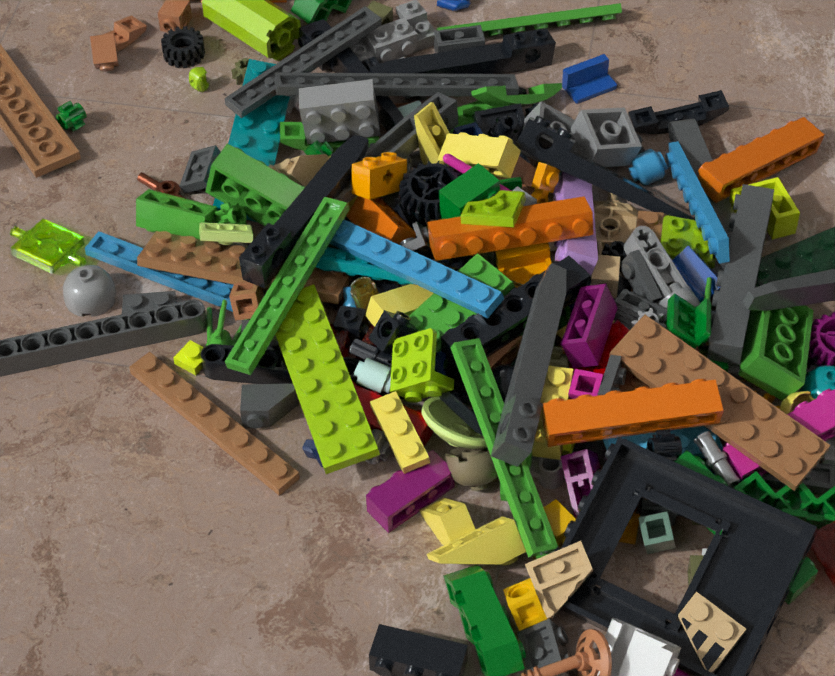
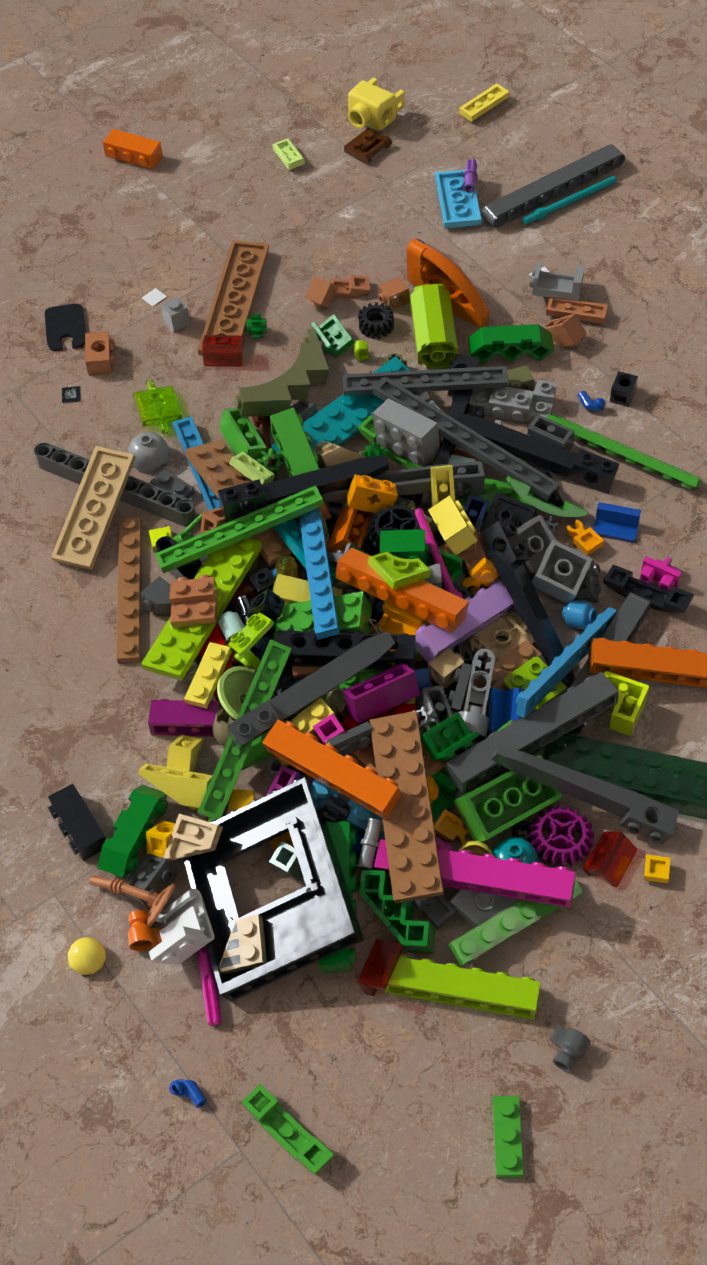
camera: 45 degrees right, 5 degrees up
(63, 156) = (223, 350): none -> clear red panel
(99, 370) = (93, 507): none -> tan plate
(158, 81) = (334, 335): none -> bracket
(175, 128) = (293, 385): none -> olive arch
(318, 374) = (193, 601): none -> nougat plate
(574, 106) = (586, 540): none -> light orange plate
(671, 93) = (661, 571): none -> dark pink hips

